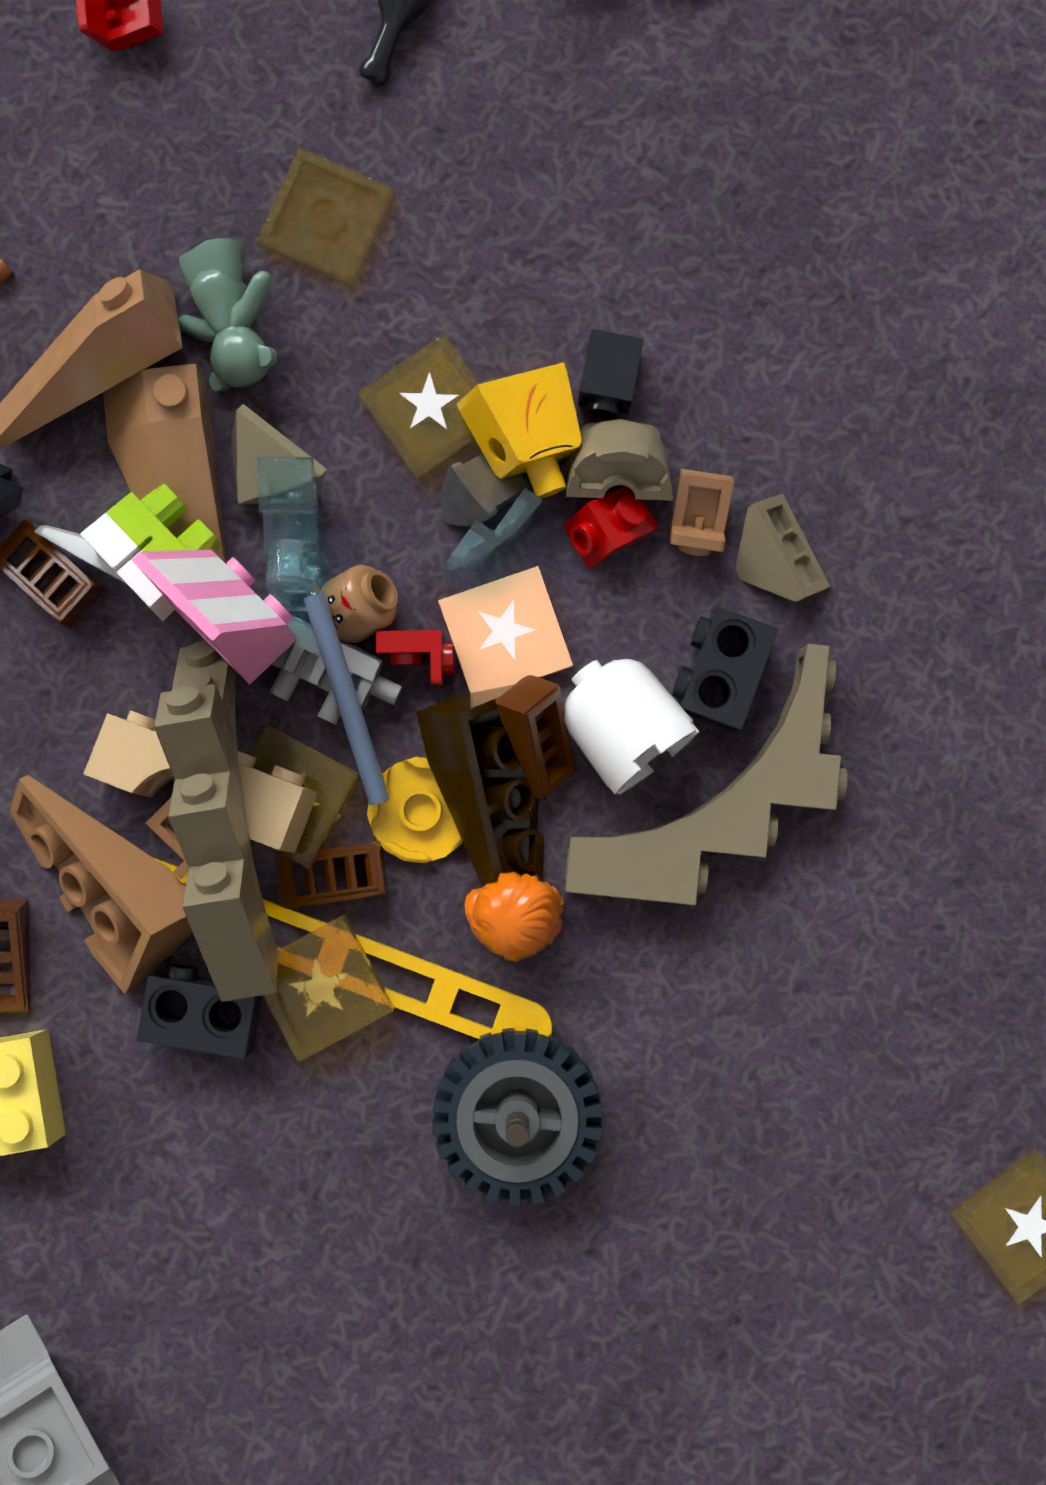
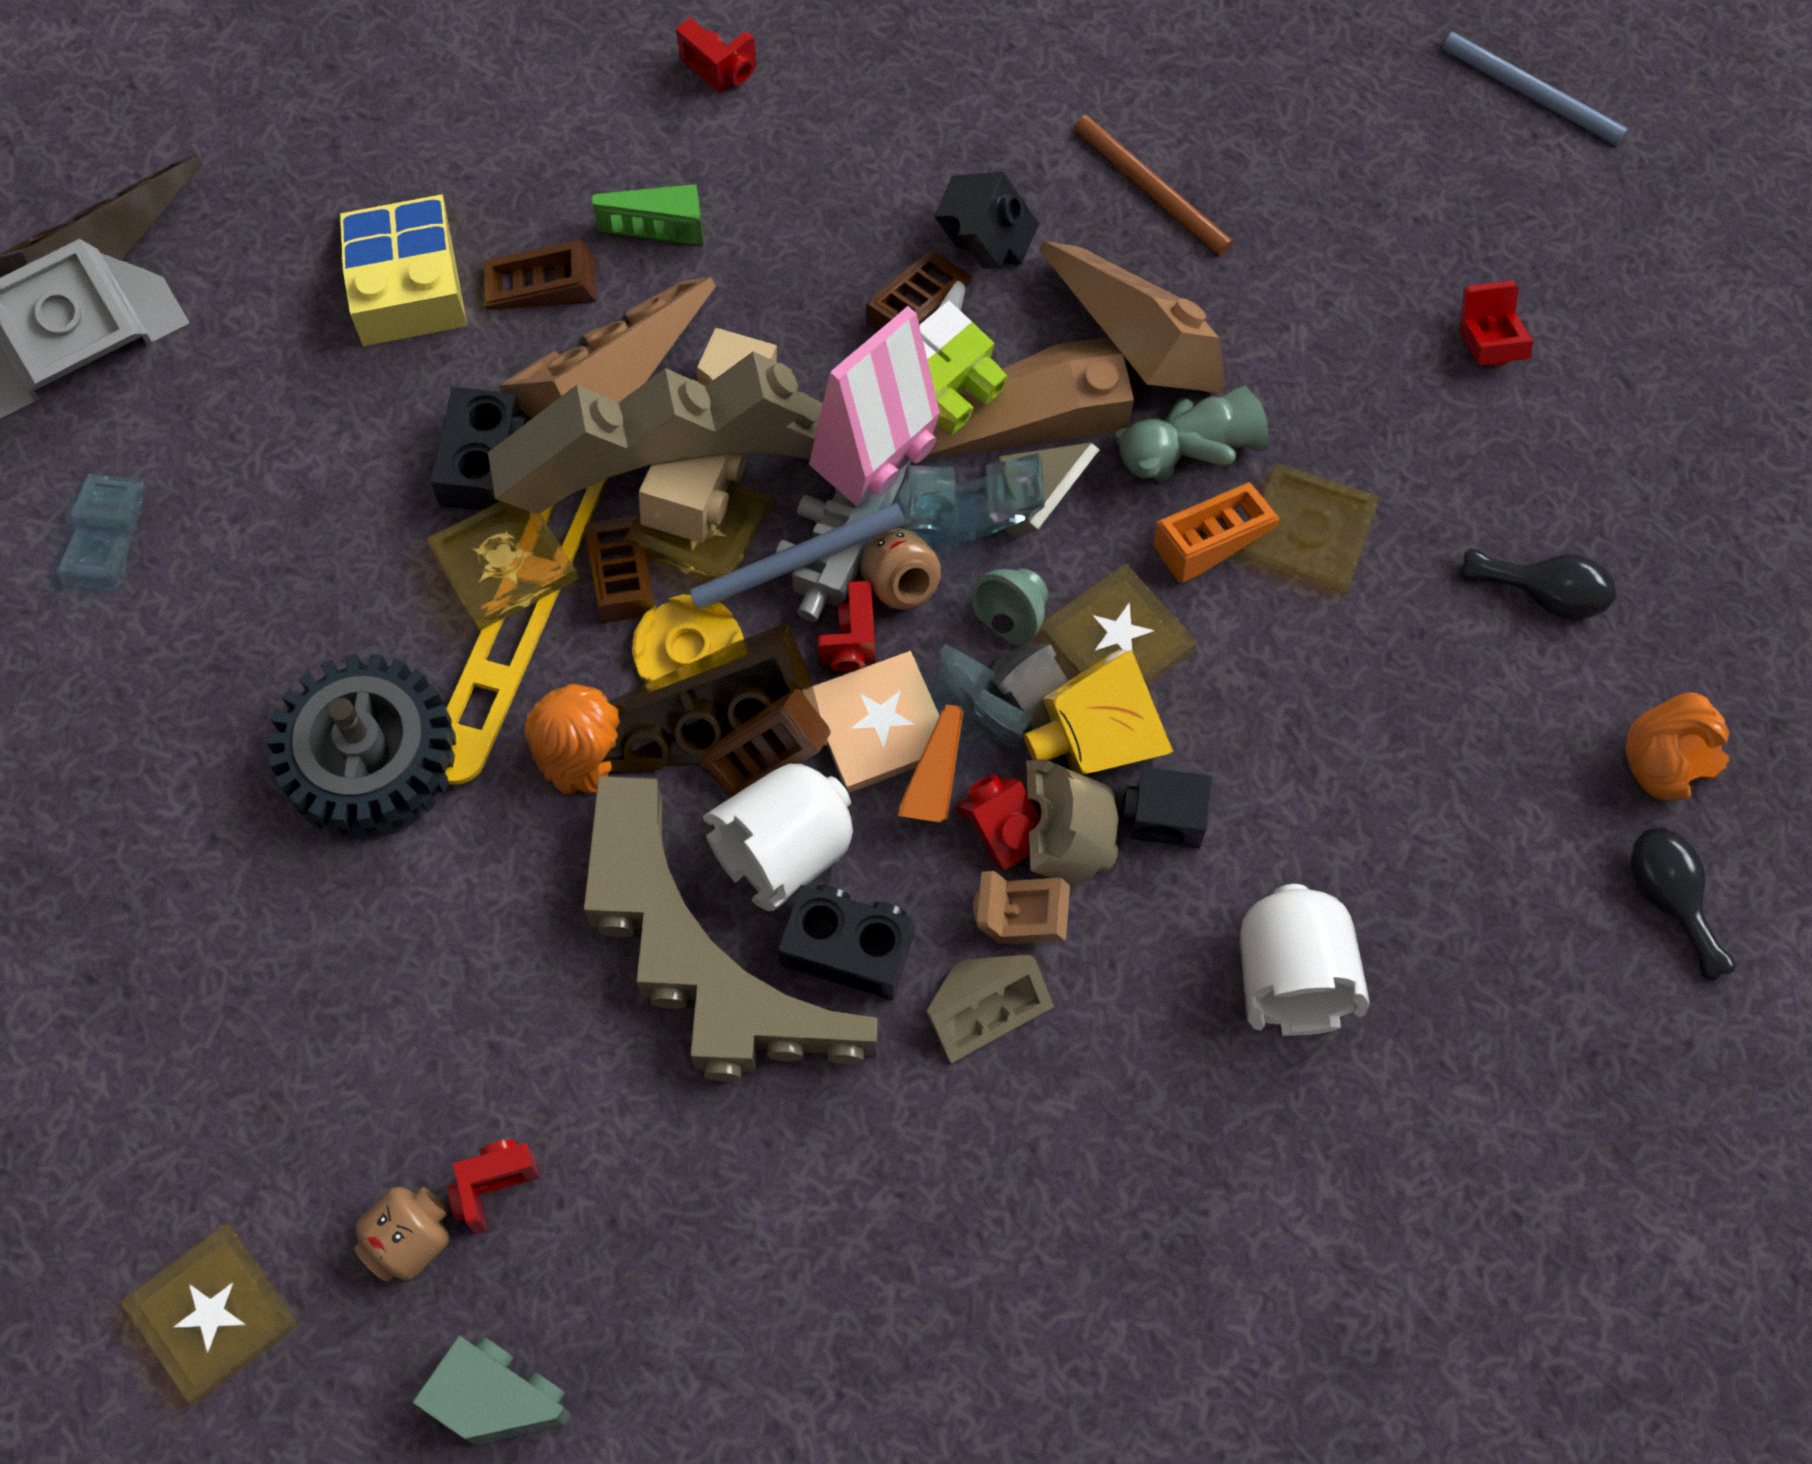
camera: 90 degrees right, 20 degrees down
(266, 1382) = (104, 531): none -> clear light blue slope
(344, 336) = (1190, 555): none -> orange slope
(390, 491) = (1013, 593): none -> sand green piece
(579, 585) = (932, 782): none -> orange slope
(765, 269) = (1301, 962): none -> white cylinder
(918, 981) = (497, 1167): none -> red bracket
(971, 1063) = (402, 1233): none -> medium nougat head

